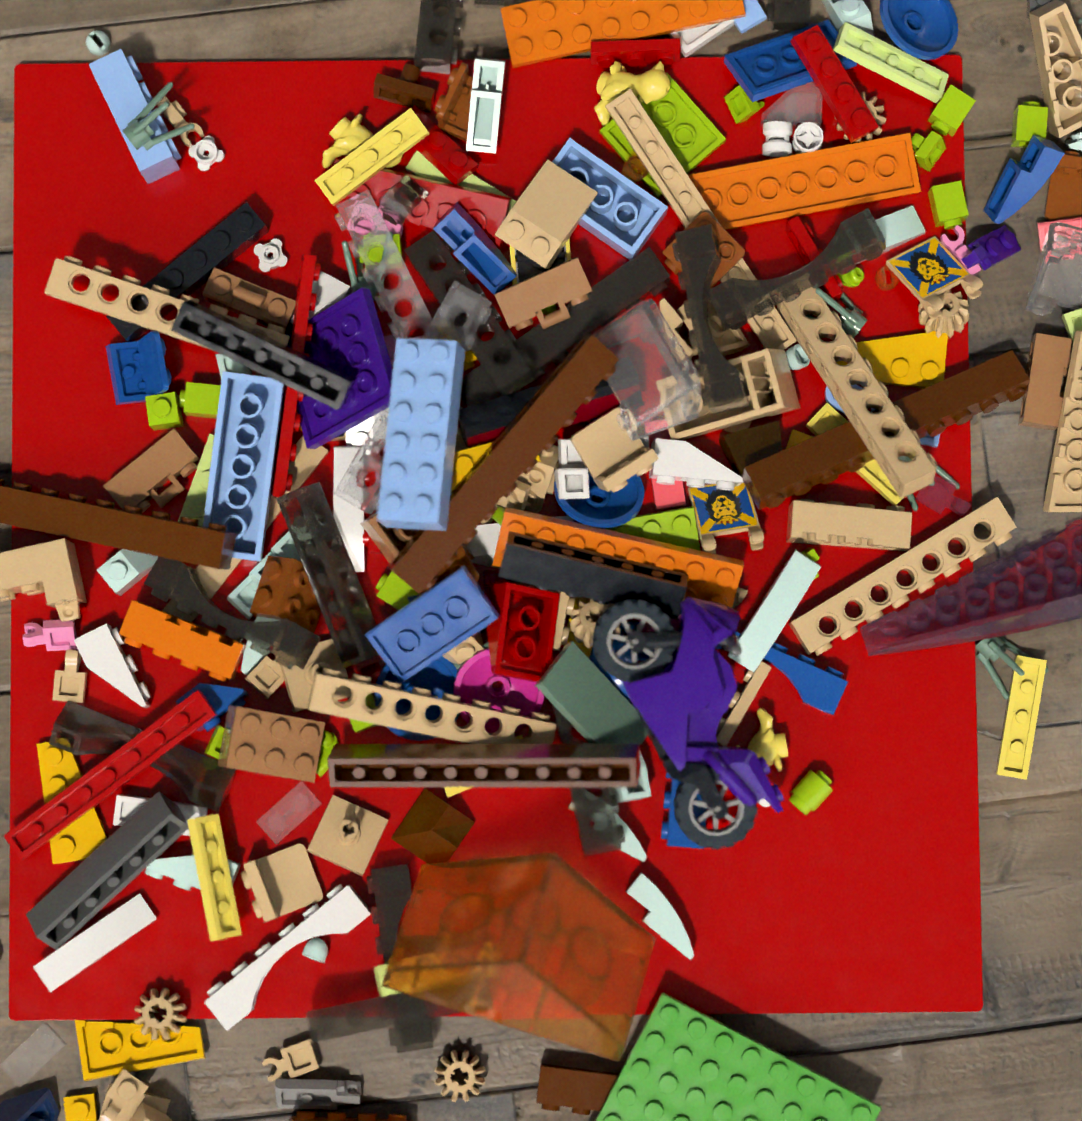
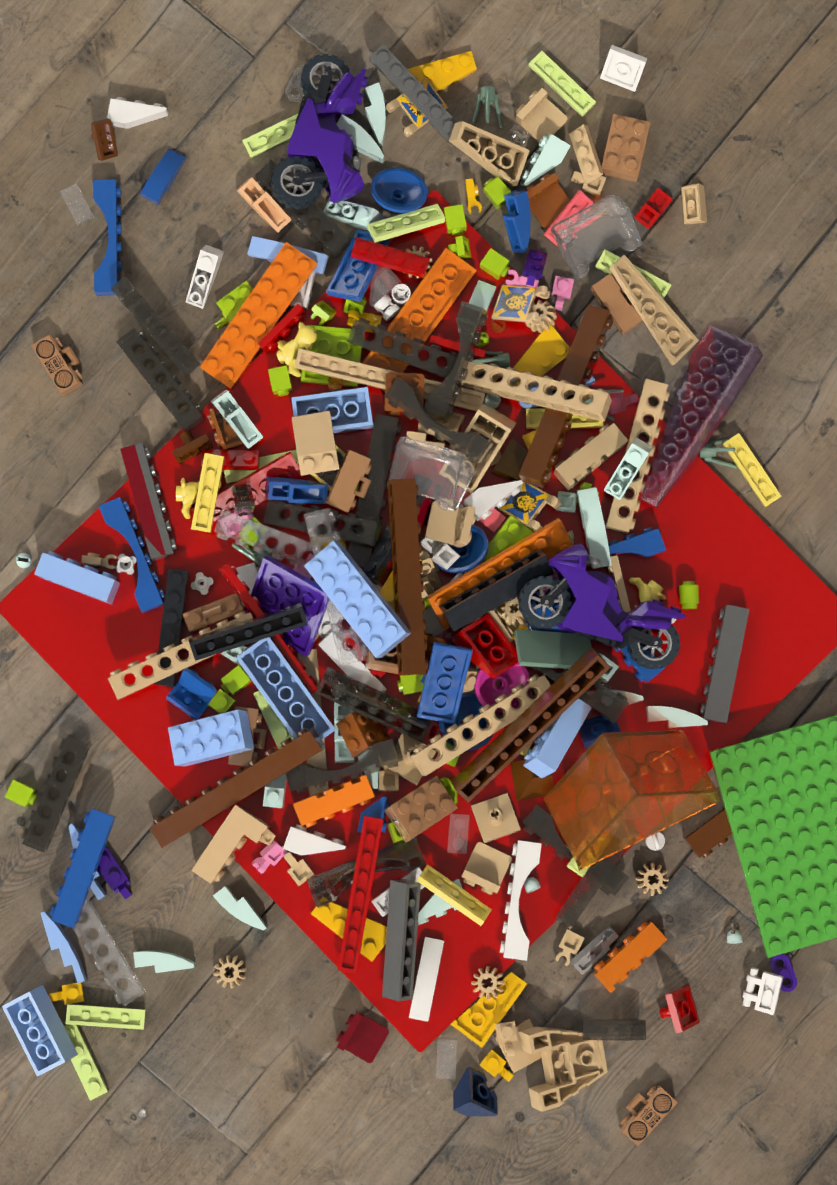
camera: 40 degrees left, 0 degrees up
(111, 438) = (211, 738): none -> light blue brick
(139, 131) = (89, 582): sand green plant -> none
(199, 206) = (147, 592): none -> blue arch
(297, 105) = (147, 501): none -> brick
(498, 811) = (555, 740): none -> light blue brick
(504, 1037) = (655, 841): none -> white tile
(559, 839) = (594, 727): none -> blue tile
(576, 108) = (280, 380): none -> lime brick
(701, 76) = (324, 311): none -> lime tile
(708, 139) = (357, 338): none -> clear smoke brick
(738, 134) = (374, 319): none -> yellow plate
(773, 553) = (567, 501): none -> light aqua tile
(778, 909) = (725, 663): none -> dark grey brick
(878, 579) = (628, 468): none -> light aqua slope
(998, 306) = (562, 289): none -> bright pink plate
(1002, 98) = (472, 191): none -> yellow plate

